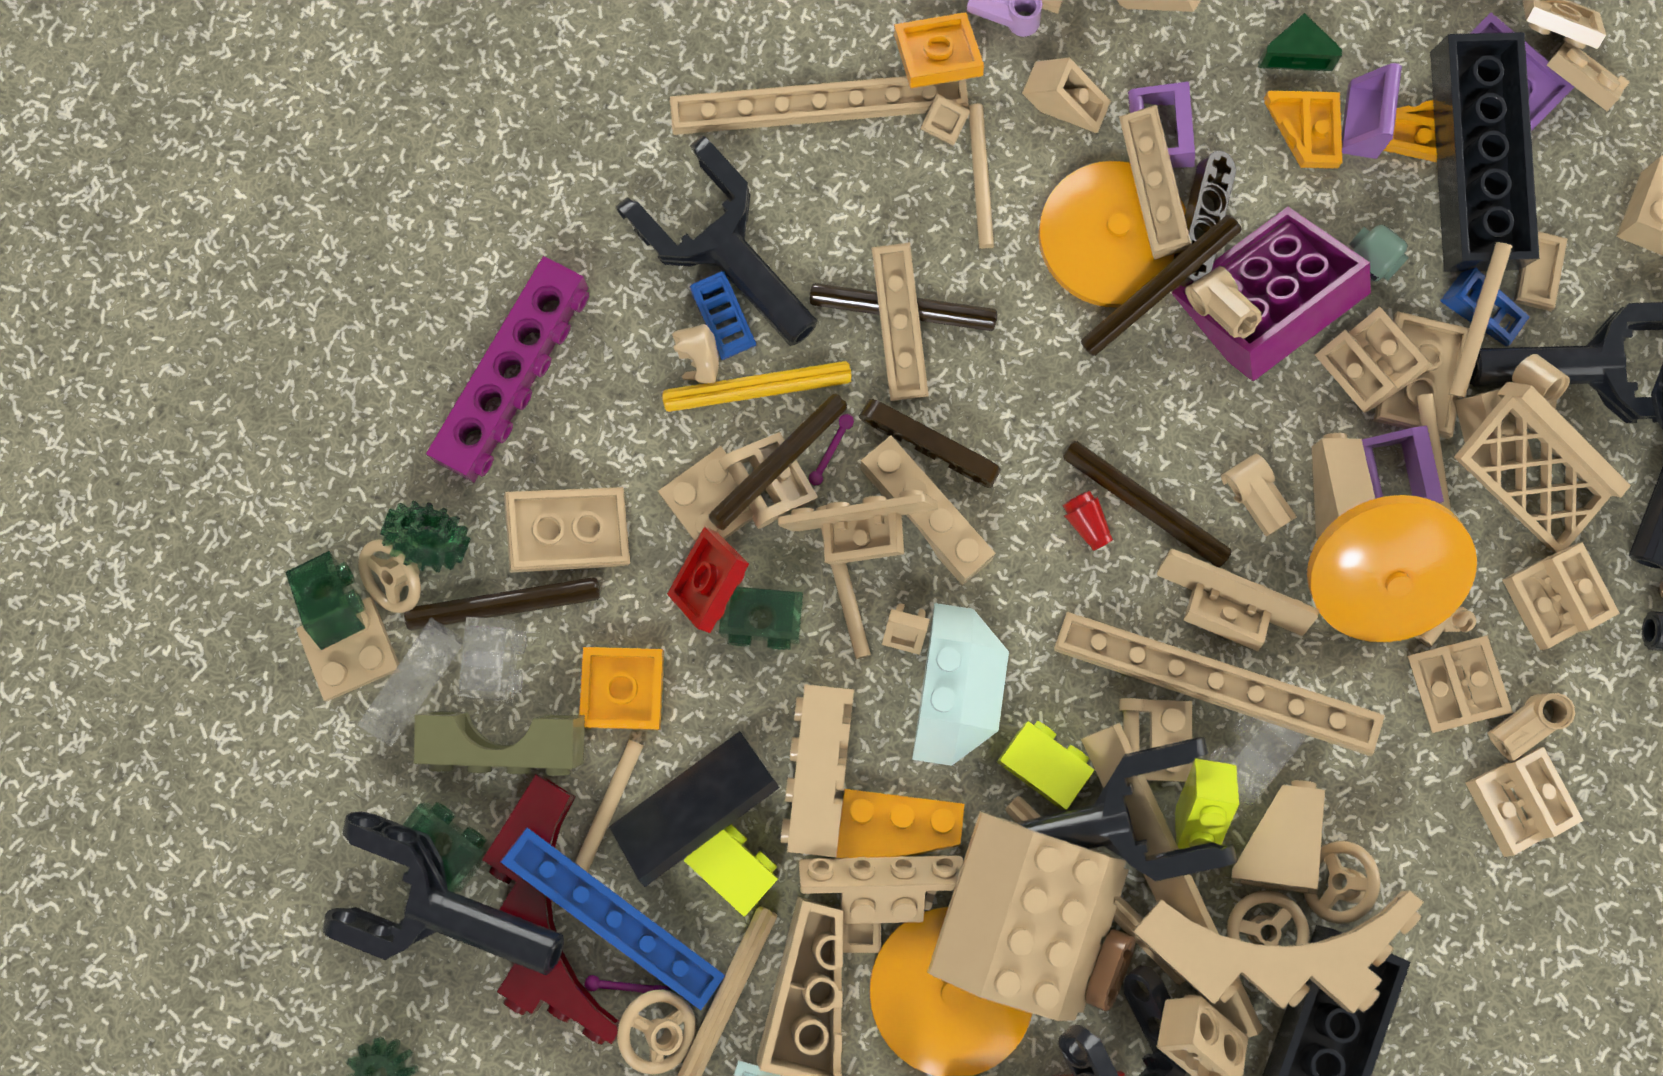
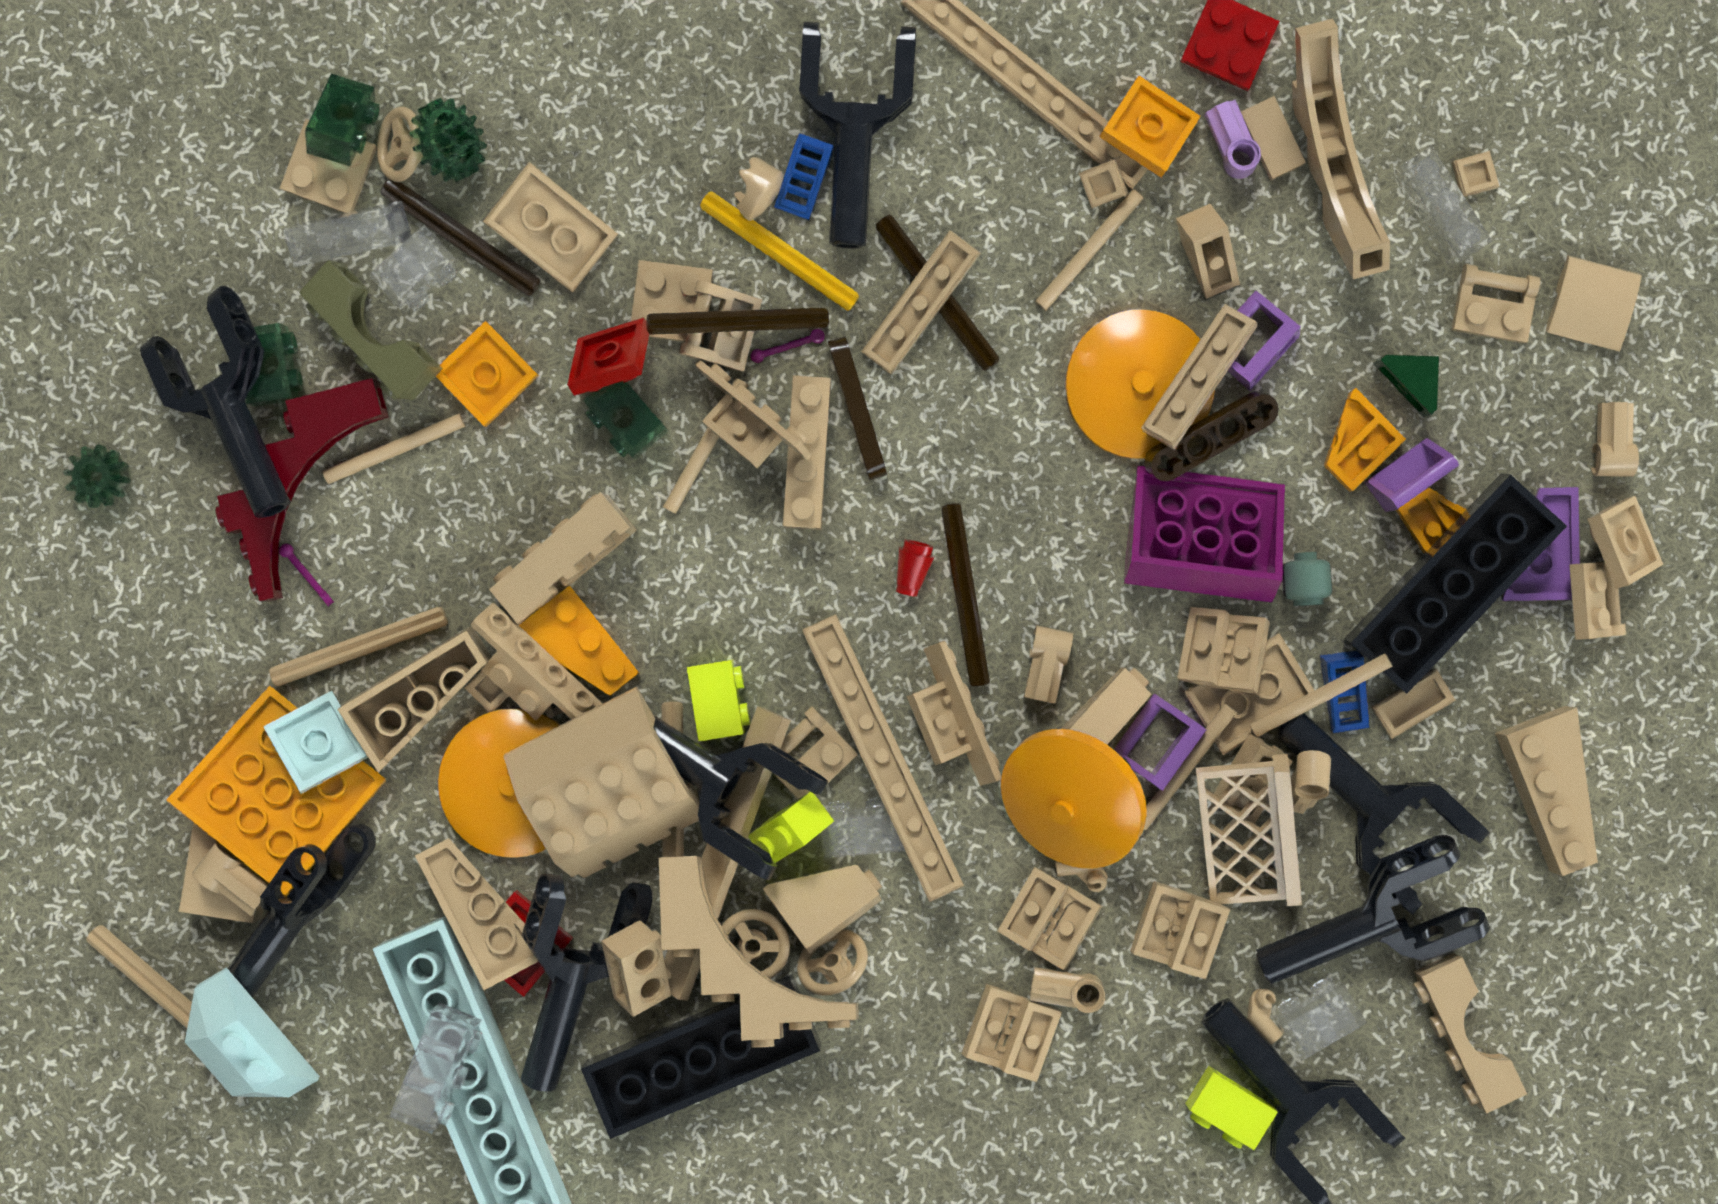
camera: 45 degrees right, 10 degrees up
(547, 283) = (561, 77): magenta brick -> none
(613, 918) = (335, 521): blue plate -> none
(672, 1040) = (298, 636): tan piece -> none
(693, 808) = (456, 501): black tile -> none
(734, 869) = (445, 565): neon yellow brick -> none
(906, 630) = (713, 521): tan tile -> none
(959, 686) = (713, 591): light aqua wedge -> none
(1110, 970) = (626, 869): medium nougat beam -> none
(1161, 285) = (1125, 454): dark brown axle -> none
(1219, 296) = (1154, 503): tan piece -> none

